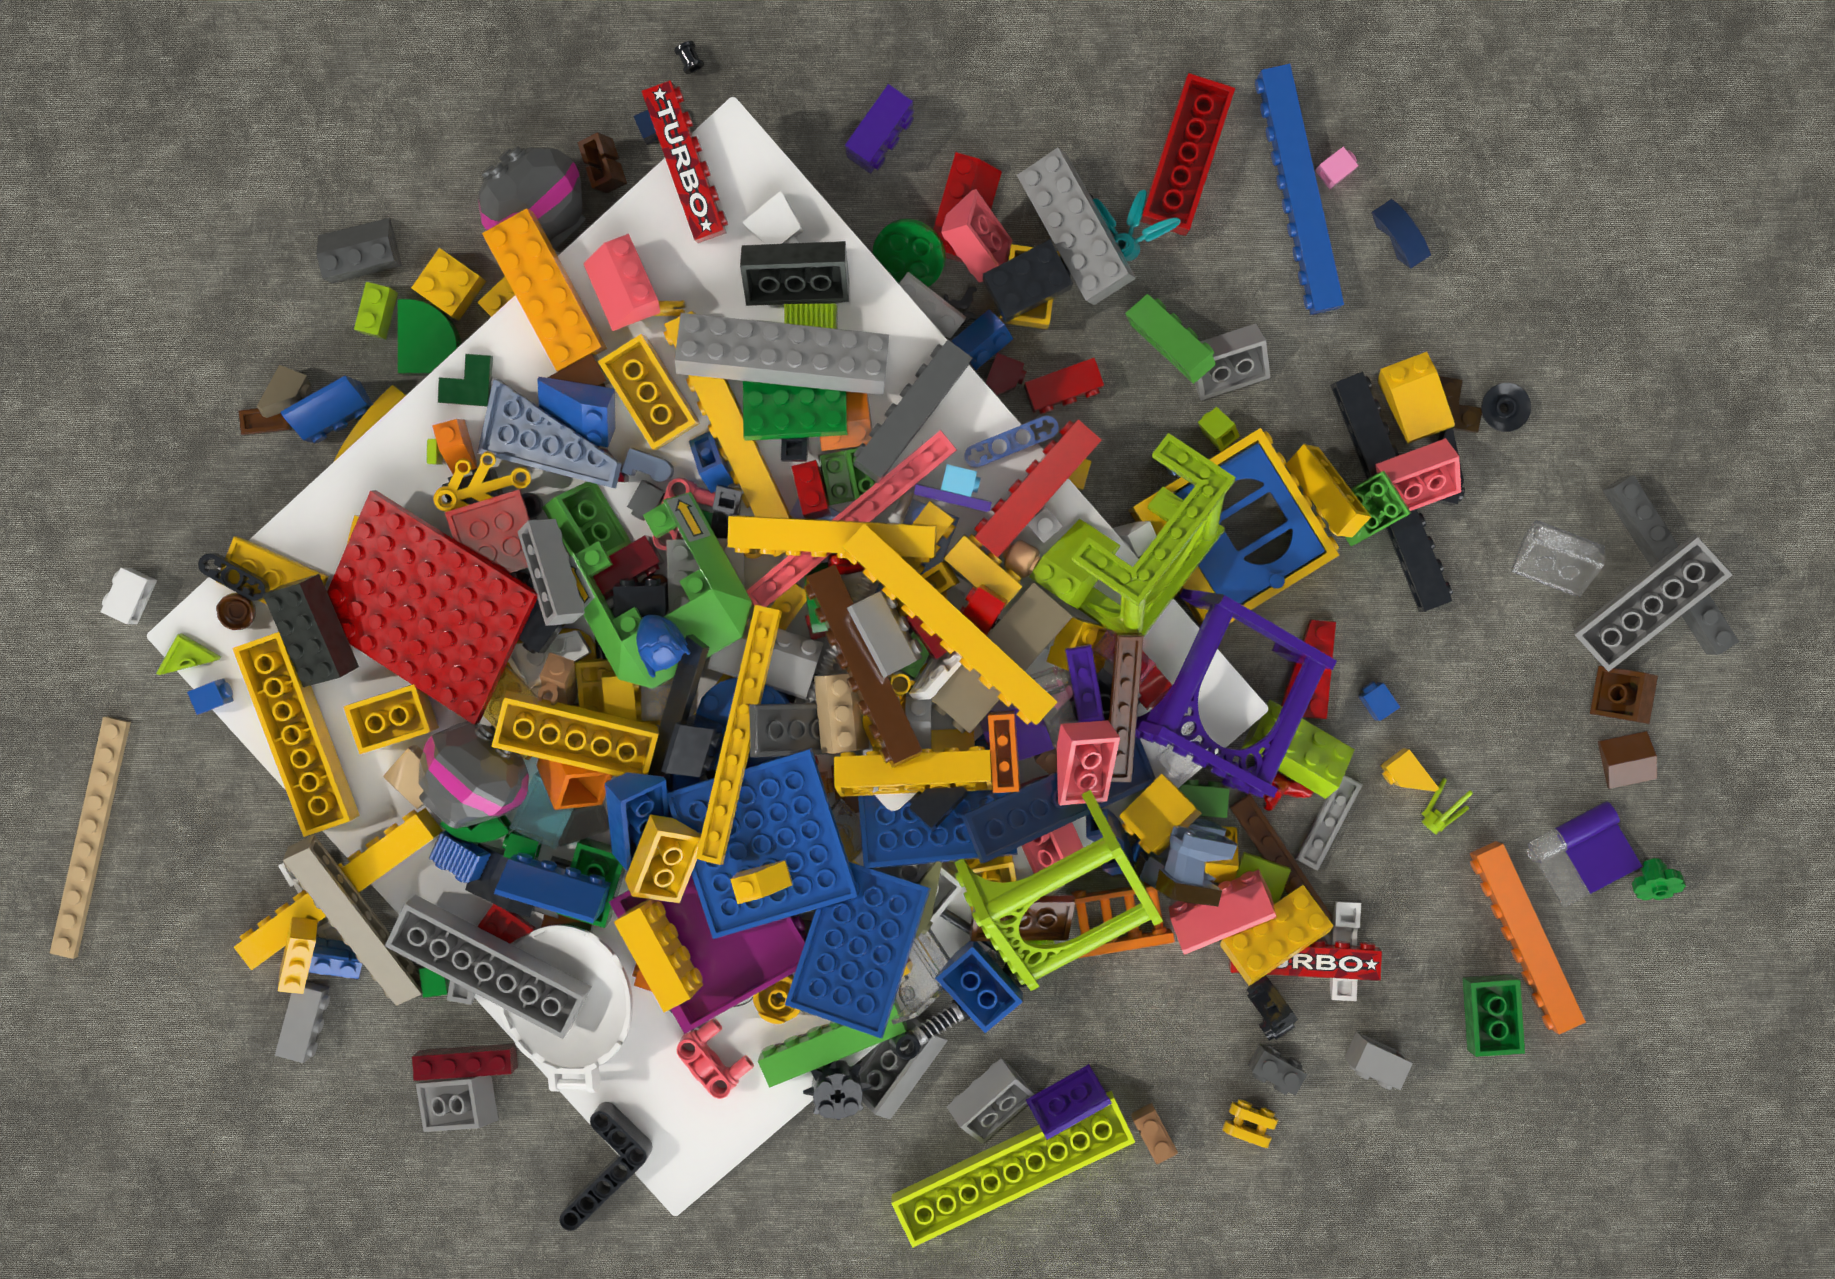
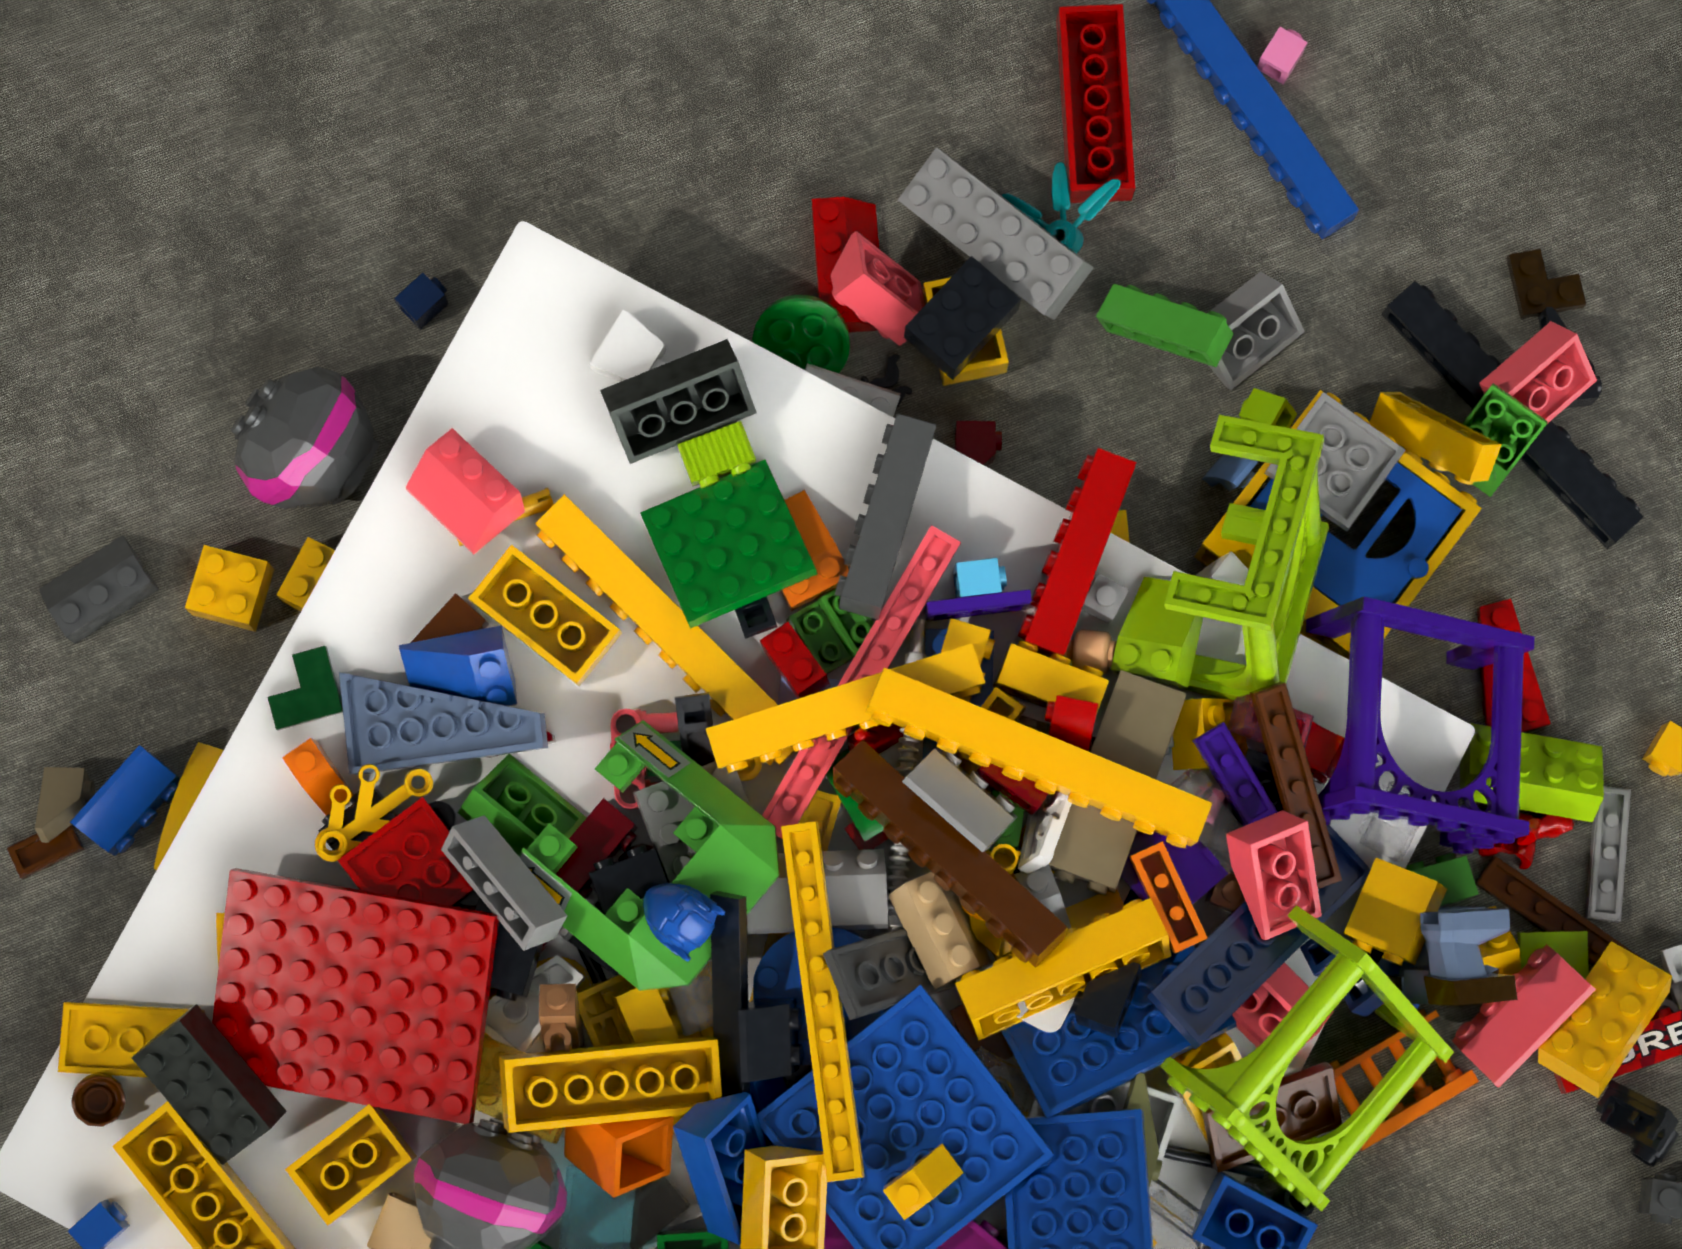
camera: 30 degrees left, 10 degrees down
(185, 654) = (46, 1185): lime tile -> none
(221, 562) = (54, 1059): black beam -> none
(376, 310) = (146, 655): lime brick -> none
(423, 338) = (221, 667): green brick -> none
(433, 453) = (293, 793): lime tile -> none
(544, 289) = (367, 537): light orange brick -> none
(601, 152) = (367, 359): reddish brown piece -> none
(645, 499) = (587, 753): dark grey brick -> none
(656, 467) = (575, 707): sand blue leg -> none
(684, 162) = (490, 319): brick -> none
(689, 57) = (437, 205): black bush -> none
(710, 462) = (653, 675): blue slope -> none
(781, 353) = (699, 503): light grey brick -> none
(880, 129) = (708, 206): dark purple brick -> none
(983, 338) = (936, 402): blue brick -> none
(1010, 439) = (1019, 509): blue beam -> none
(1064, 386) = (1054, 433): red brick -> none
(1259, 486) = (1351, 460): none -> light grey plate
(1378, 700) = (1605, 676): blue brick -> none
(1404, 234) = (1398, 103): dark blue brick -> none
(1416, 397) = (1492, 287): yellow slope -> none
(1517, 405) = (1613, 249): black dish -> none

